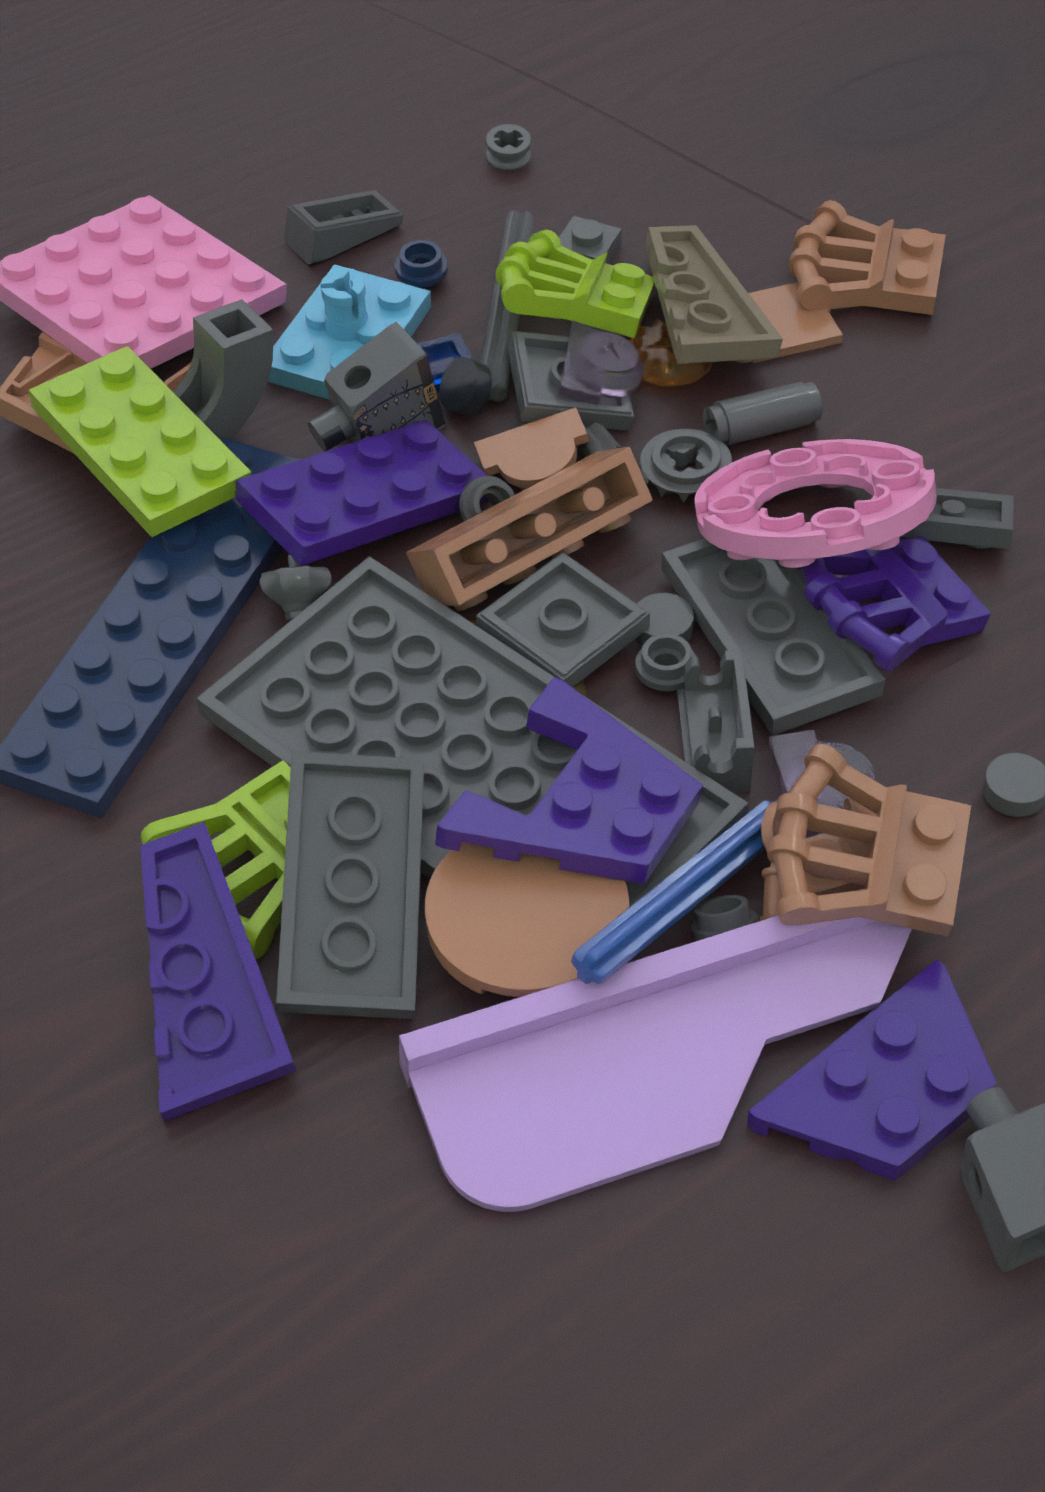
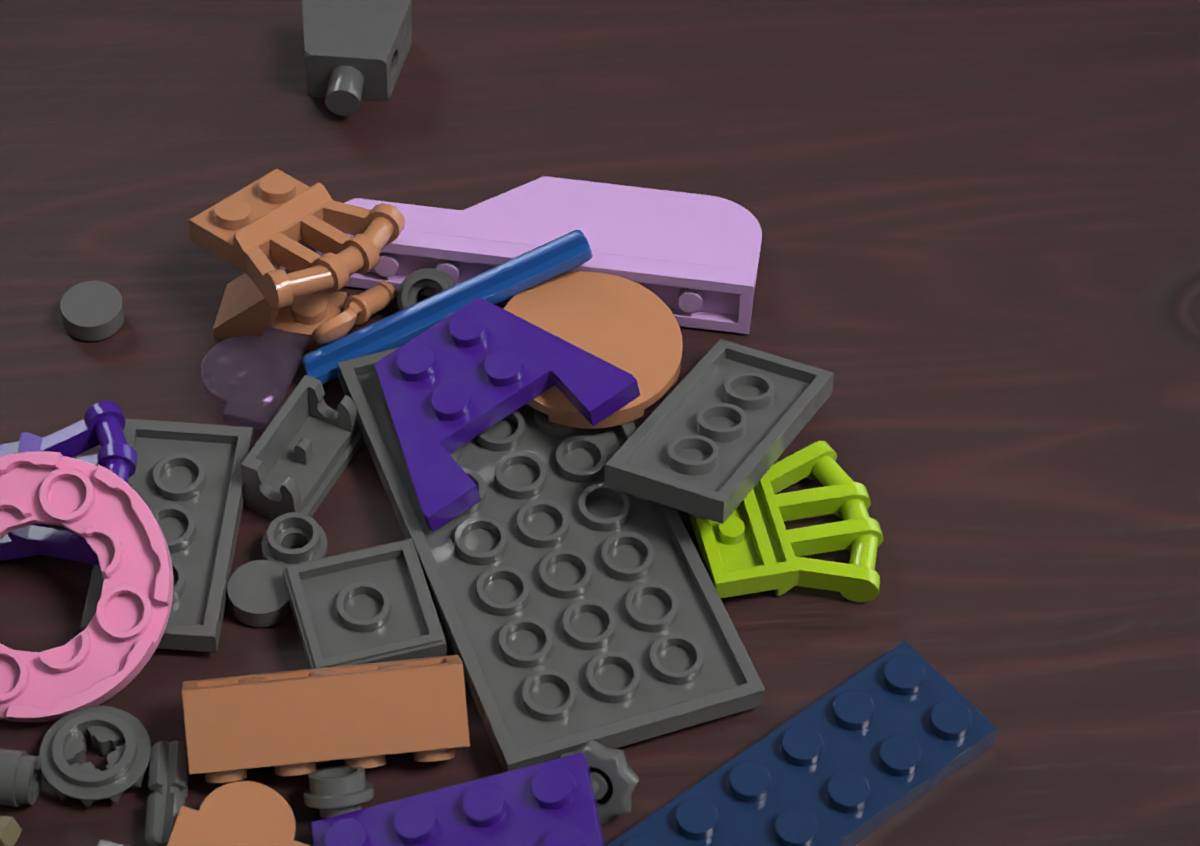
camera: 155 degrees left, 0 degrees up
(208, 994) = (882, 421): dark purple wing -> none
(887, 1083) = (401, 155): dark purple wing -> none

